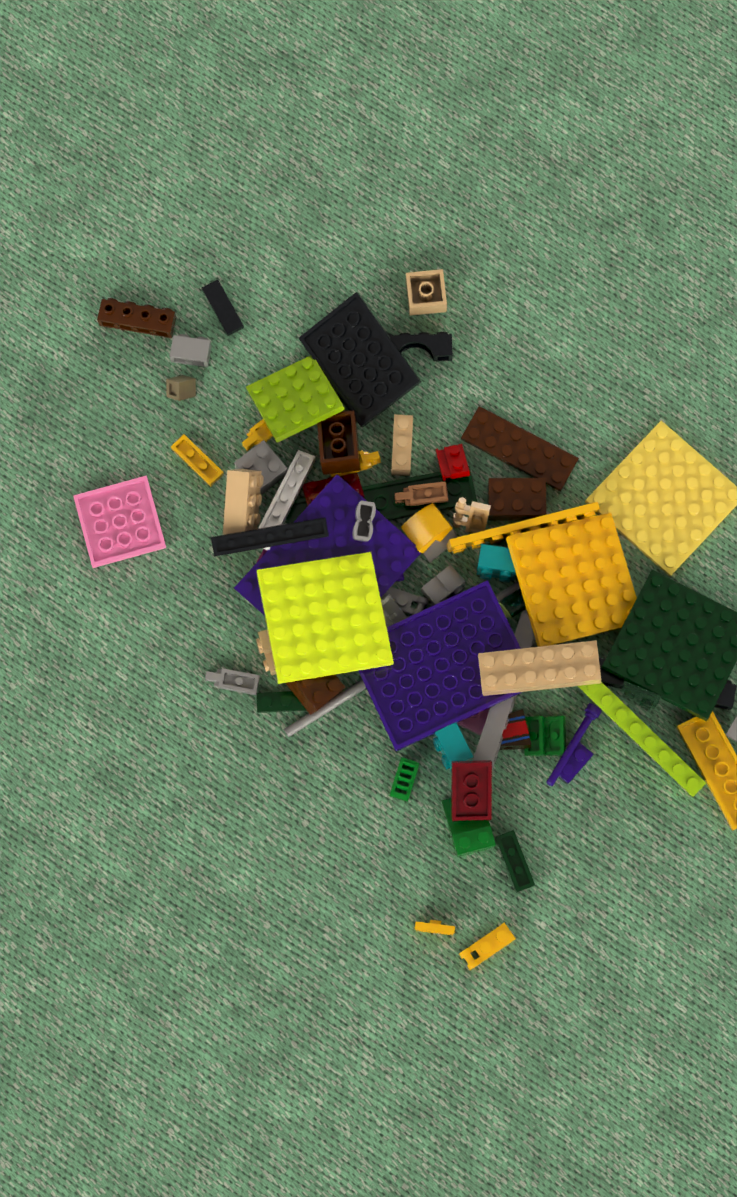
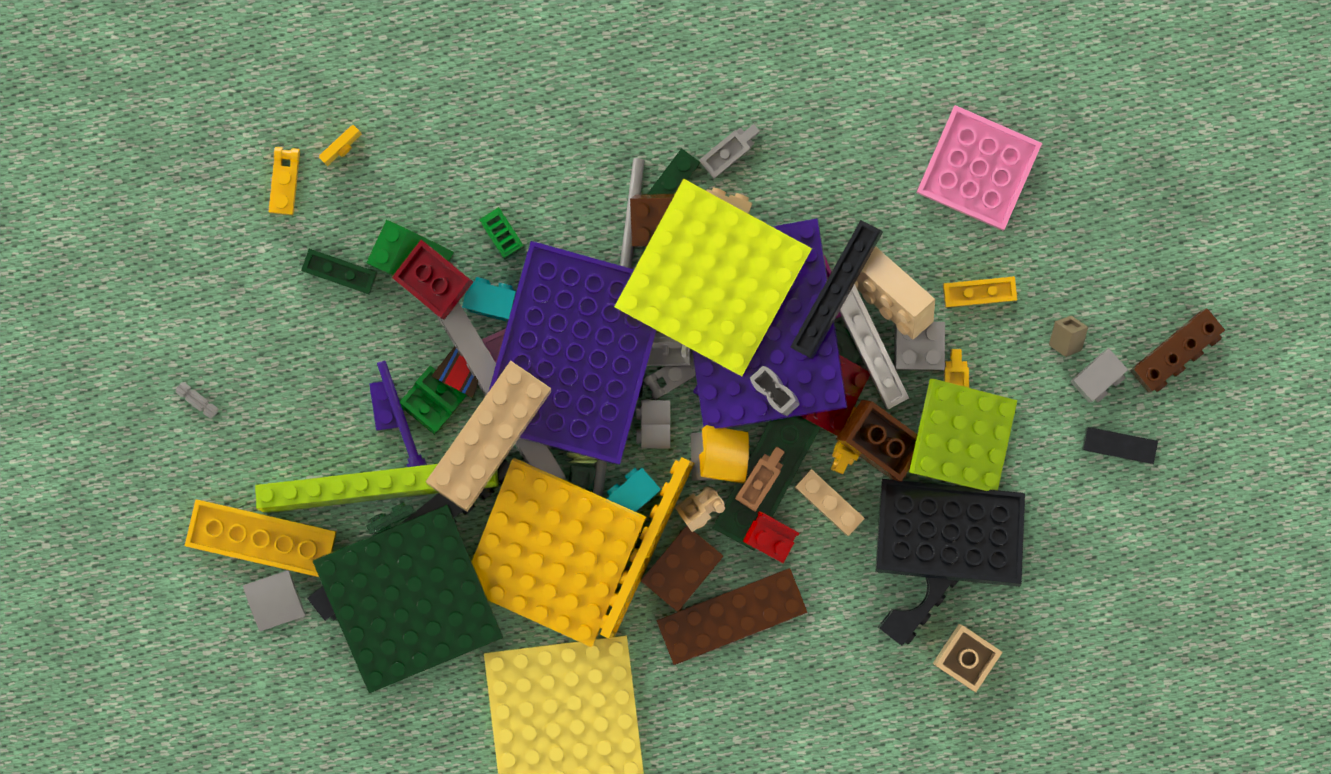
camera: 125 degrees right, 10 degrees up
(672, 883) = (196, 400): none -> light grey axle

